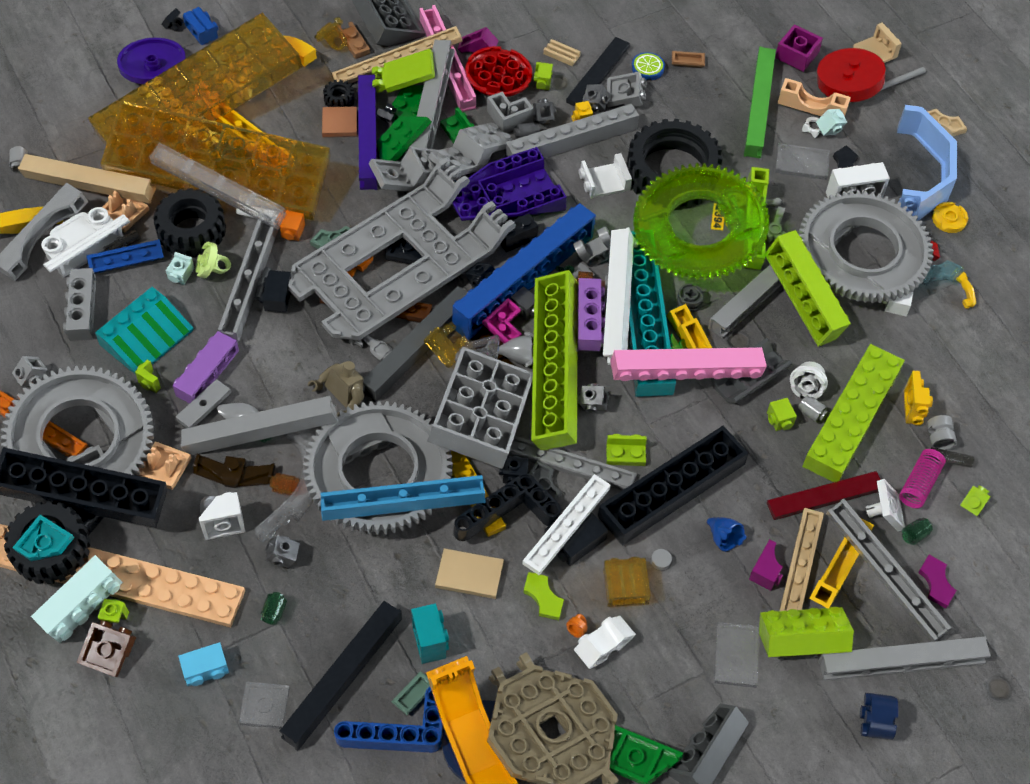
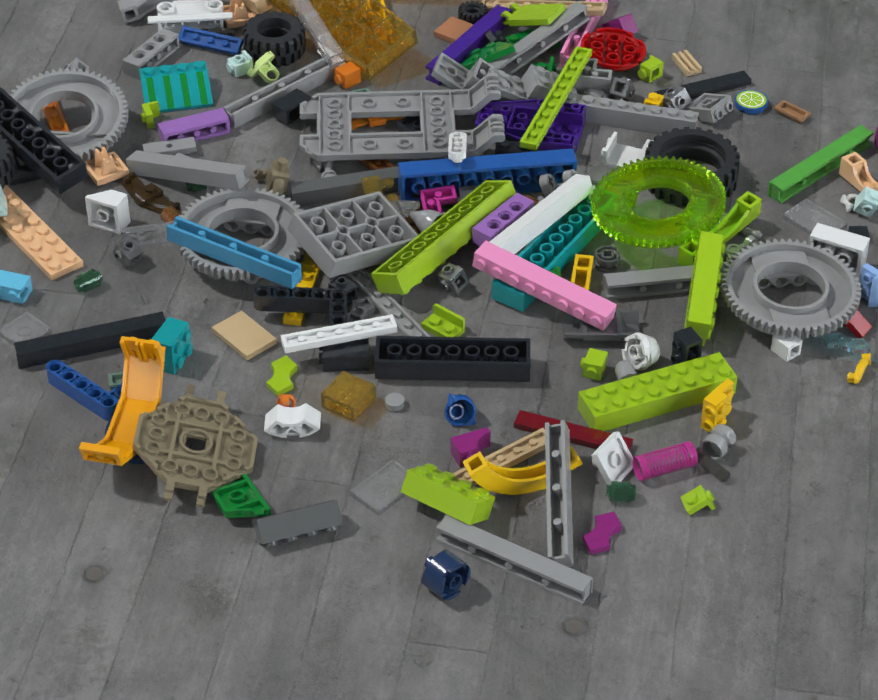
camera: 40 degrees right, 15 degrees down
(486, 257) = (457, 146): none -> white plate
(514, 156) = (555, 98): none -> lime plate
(841, 356) = (686, 346): none -> black brick

